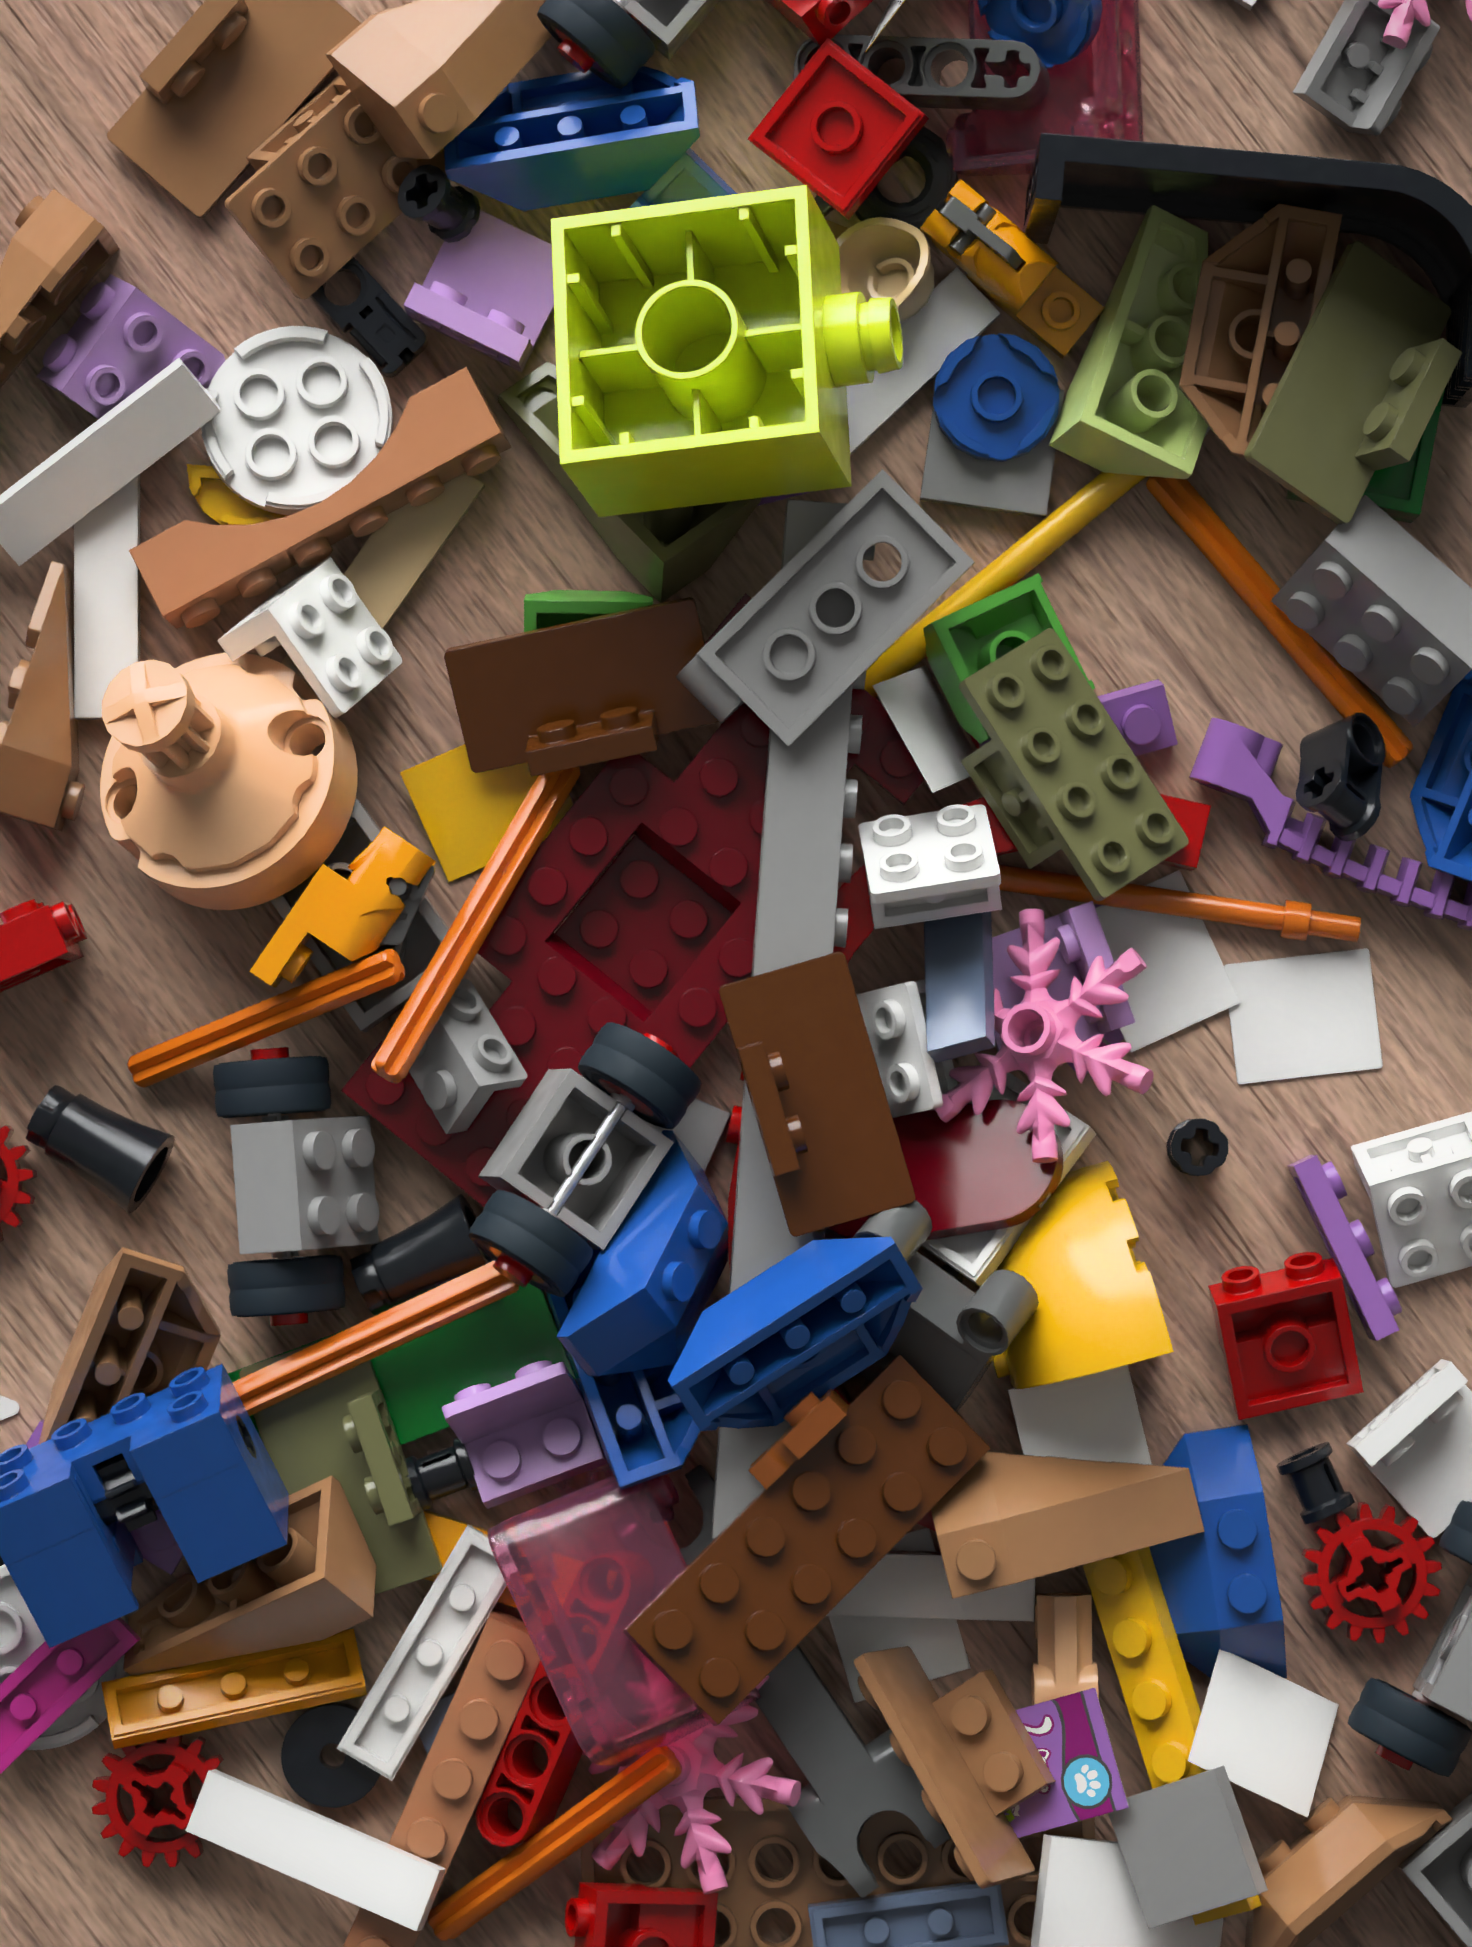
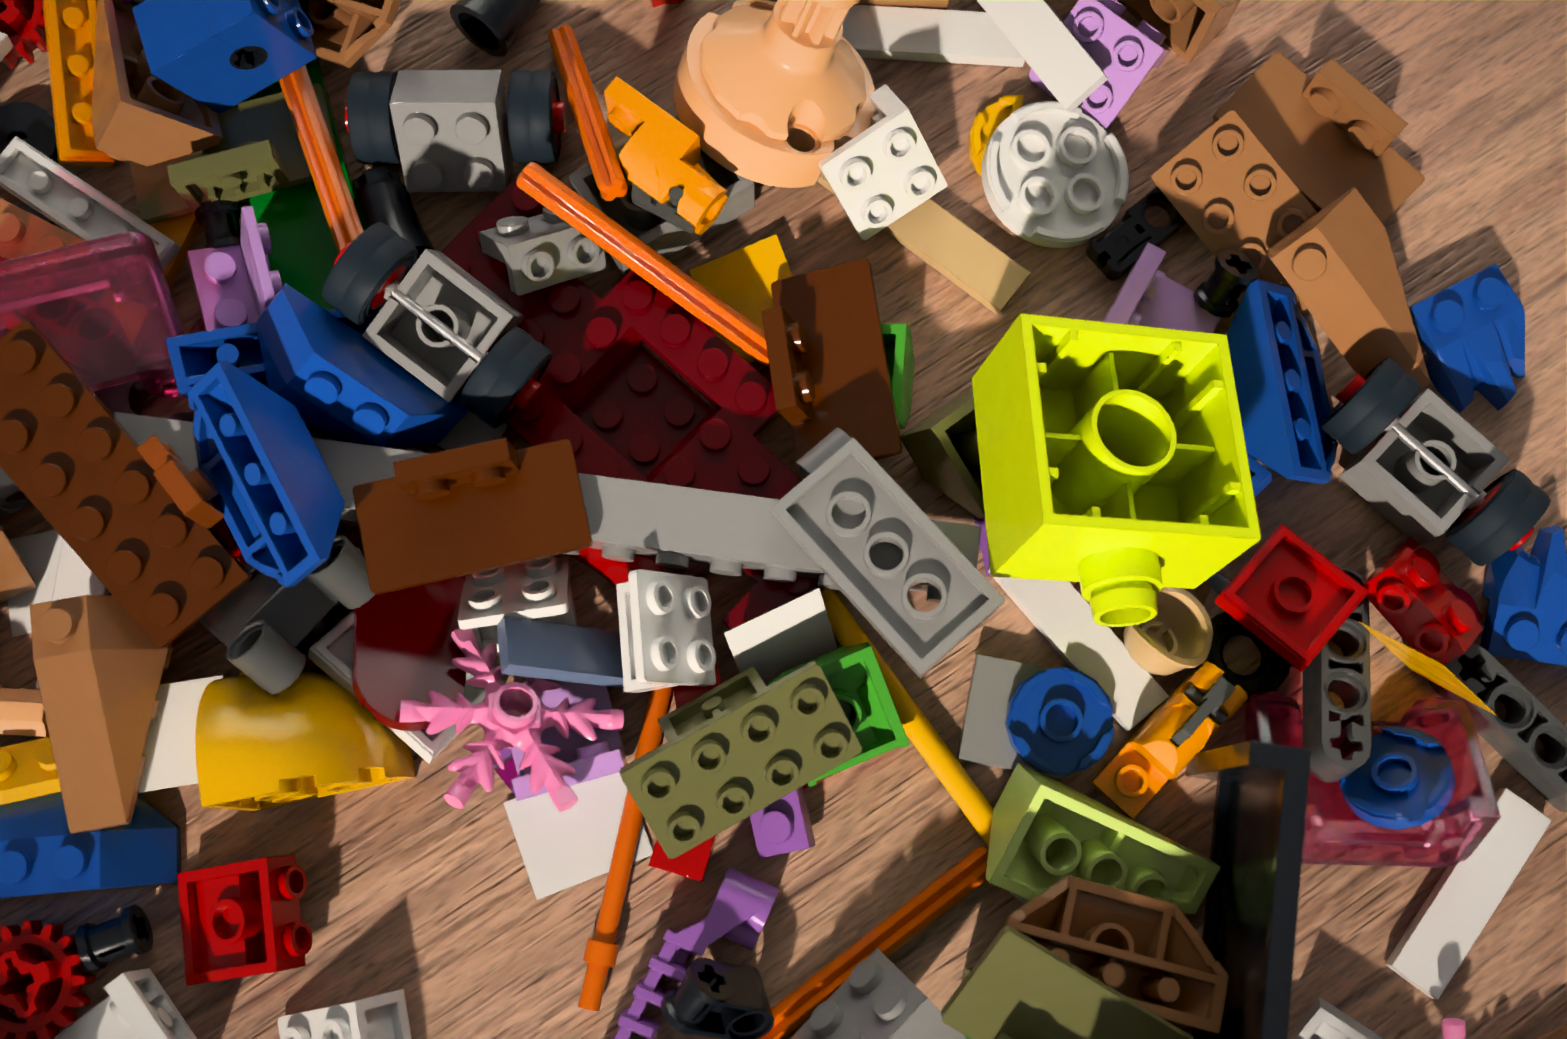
camera: 85 degrees right, 10 degrees down
(436, 440) = (1036, 266): nougat arch -> none
(1211, 1134) = (401, 864): black bush -> none
(1304, 1016) = (520, 956): white sticker -> none
(1347, 1245) = (313, 979): medium lavender plate -> none

